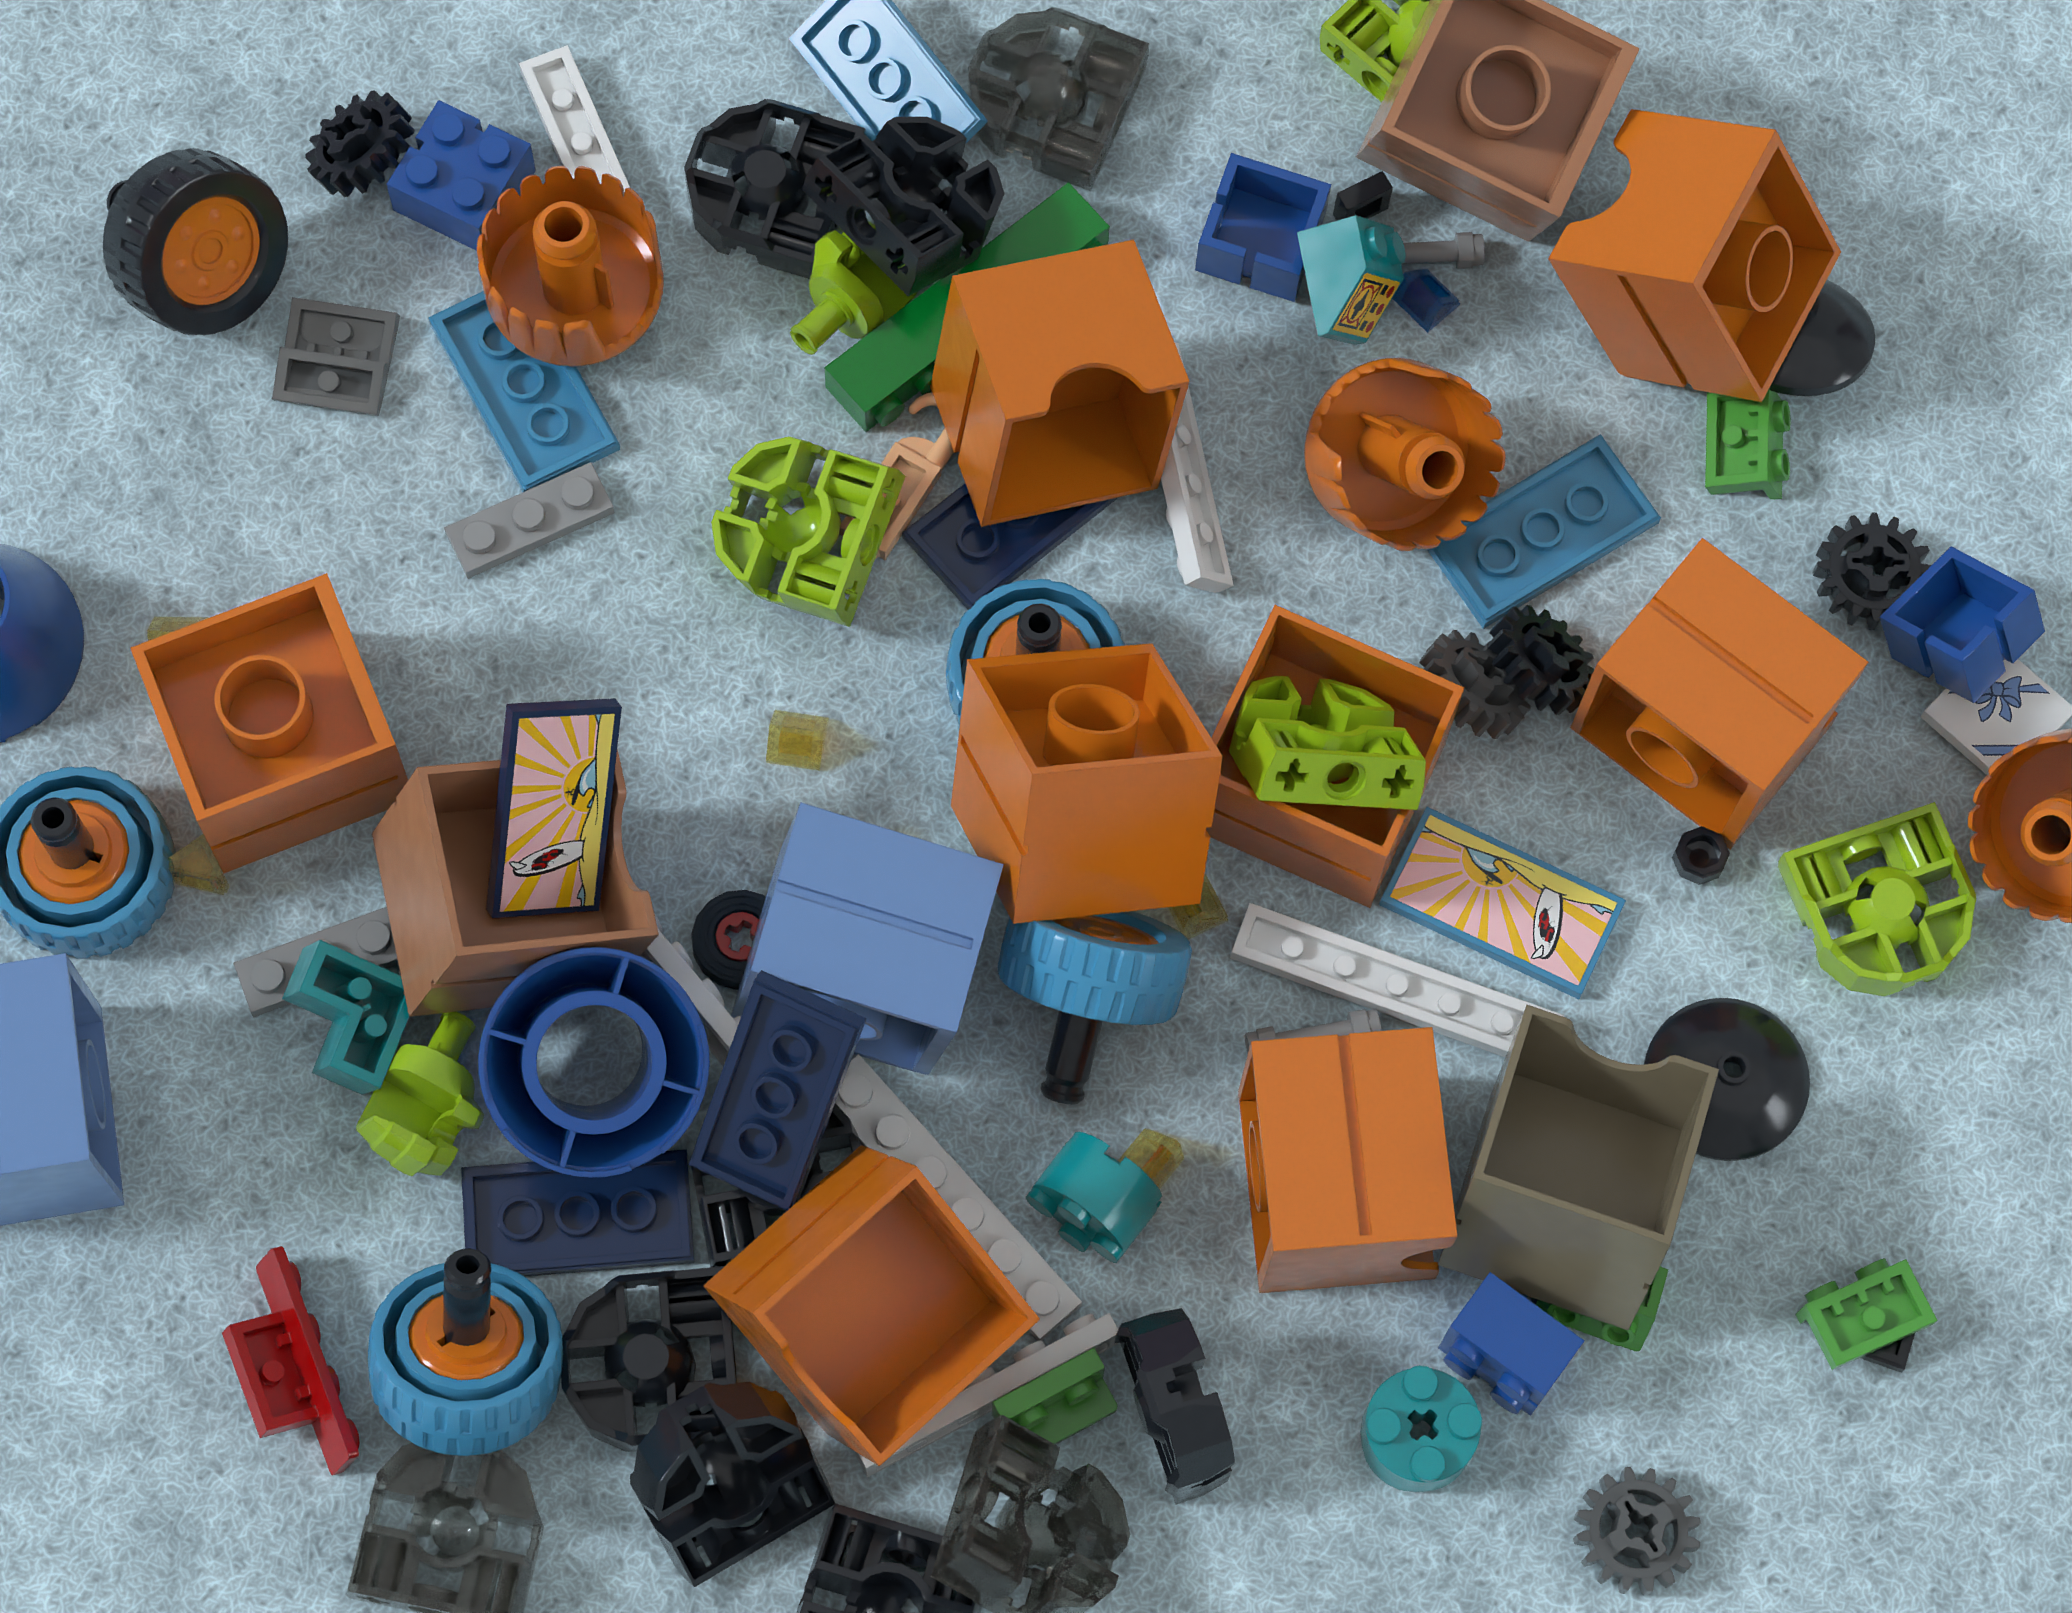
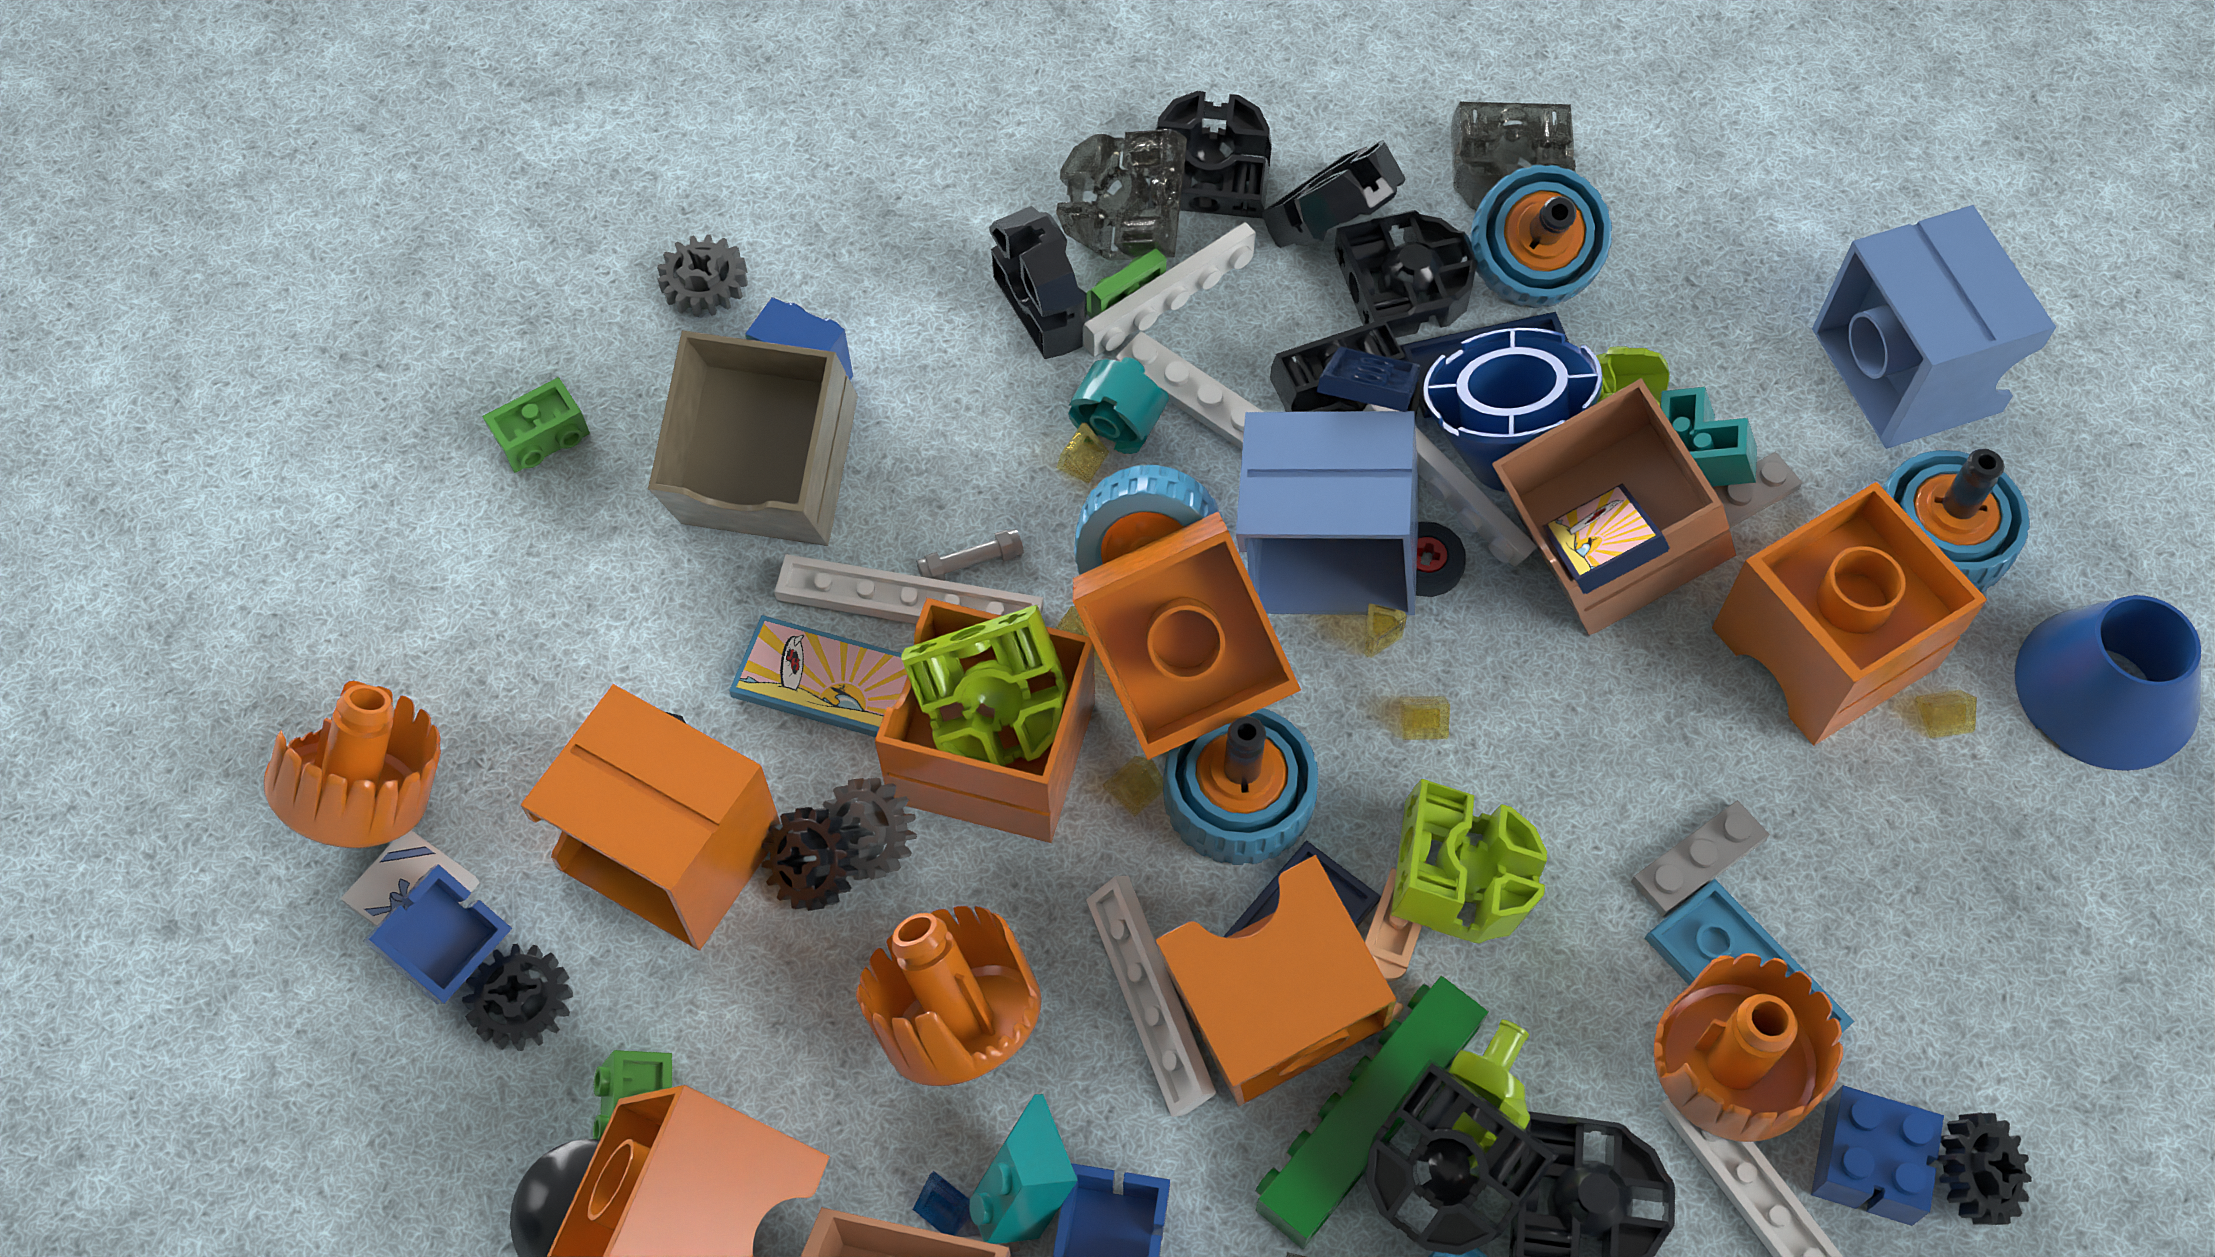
camera: 175 degrees right, 10 degrees down
(194, 241) = (2097, 1017): black wheel -> none
(285, 1367) = (1666, 238): red bracket -> none
(335, 356) = (1920, 975): dark grey slope -> none
(872, 1302) = (1267, 280): orange piece -> none
(1346, 1159) = (936, 425): orange piece -> none
(1412, 1398) = (864, 302): teal brick -> none
(1545, 531) = (805, 1000): dark azure tile -> none
(1762, 1105) = (649, 599): black dish -> none
(1916, 855) = (499, 711): lime connector -> none

